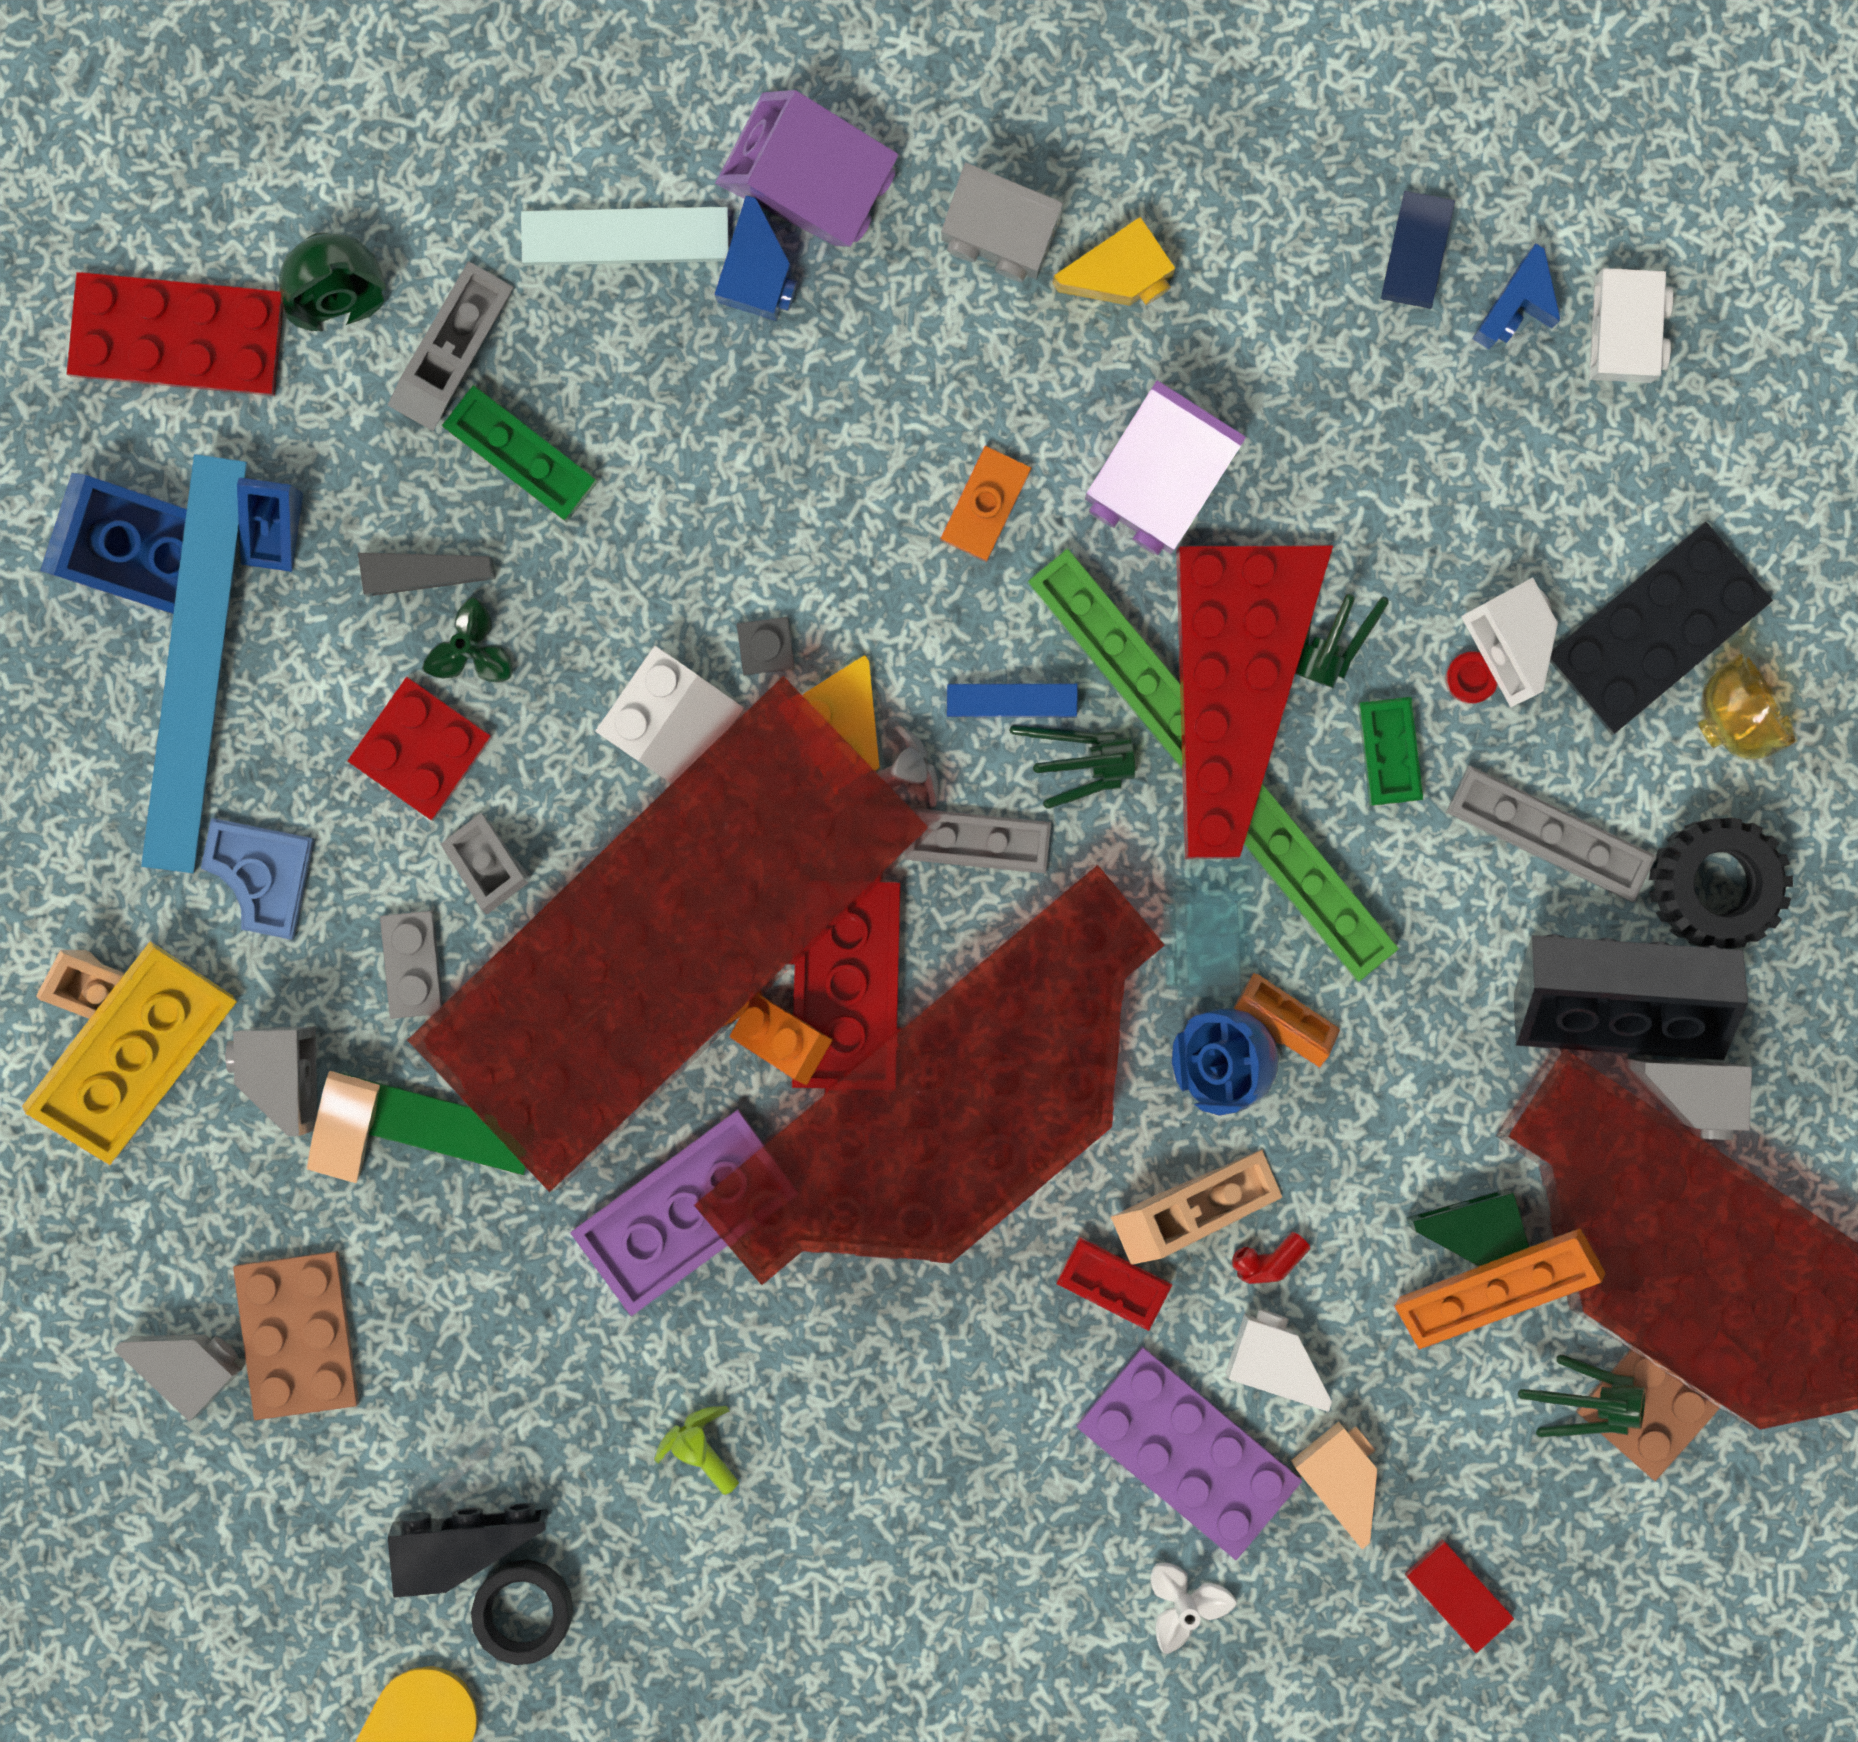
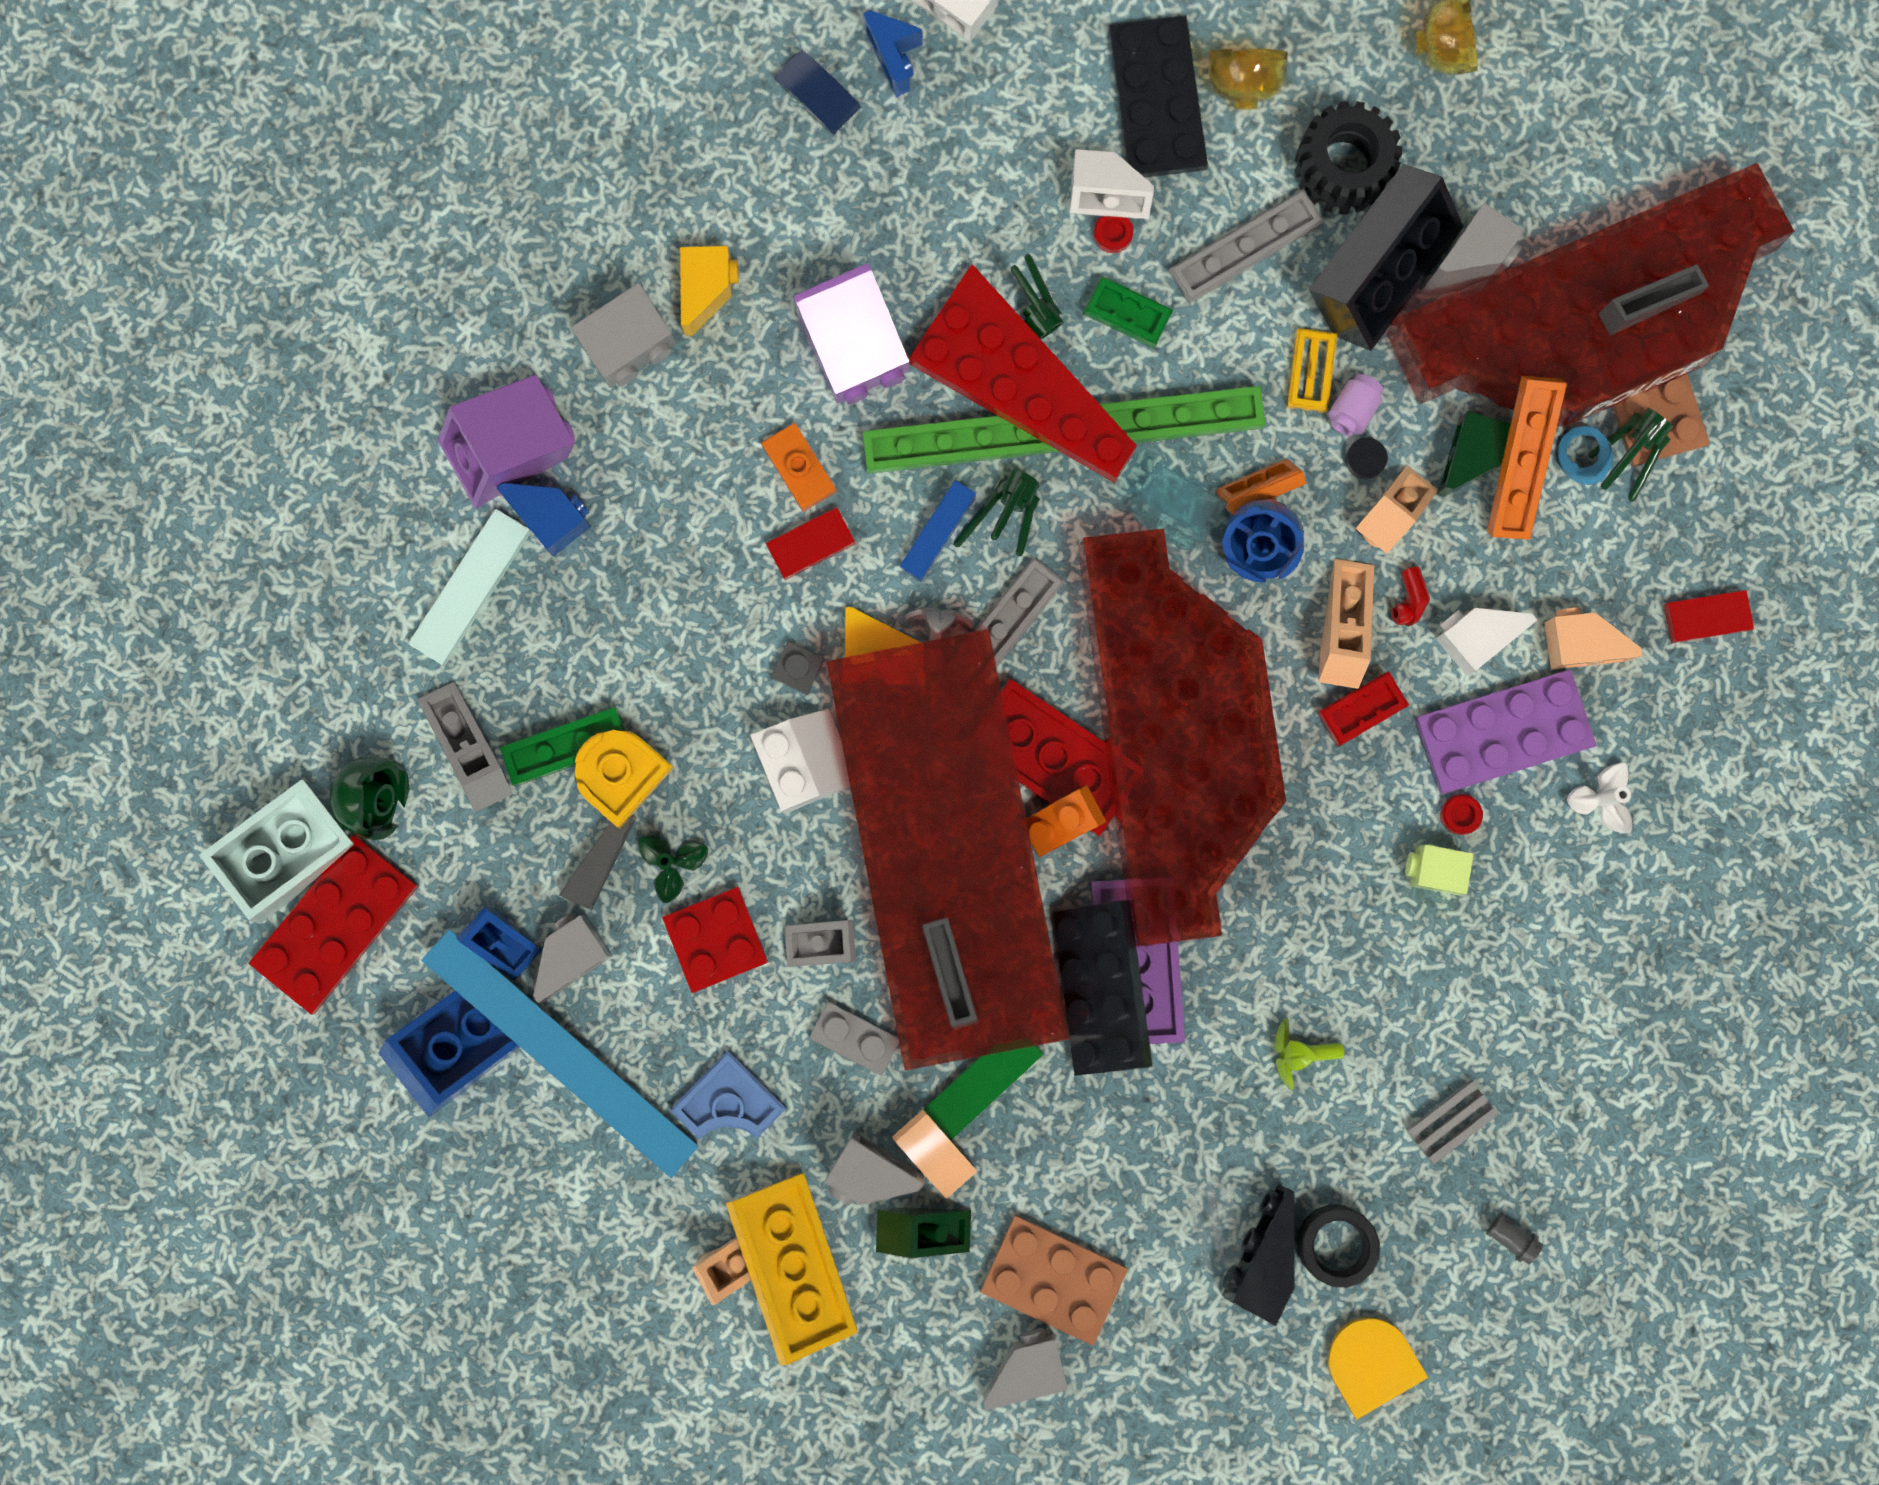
camera: 60 degrees left, 5 degrees down
(208, 225) = (277, 852): none -> light aqua slope
(255, 1166) = (923, 1232): none -> dark green slope
(302, 605) = (568, 956): none -> light grey slope
(526, 530) = (618, 773): none -> yellow tile
(535, 1024) = (950, 974): none -> dark grey piece
(629, 1193) = (1102, 988): none -> black plate
(724, 1672) = (1425, 1143): none -> light grey tile
(910, 571) = (810, 543): none -> red tile
(990, 1473) = (1439, 869): none -> yellowish green brick
(1067, 1460) = (1461, 814): none -> red tile
(1358, 1184) = (1396, 510): none -> light nougat slope
(1395, 1115) = (1366, 458): none -> black tile
(1446, 1067) = (1356, 405): none -> lavender brick
(1496, 975) = (1307, 403): none -> yellow tile
(1563, 1374) = (1594, 473): none -> dark azure piece
(1763, 1319) = (1653, 299): none -> dark grey piece

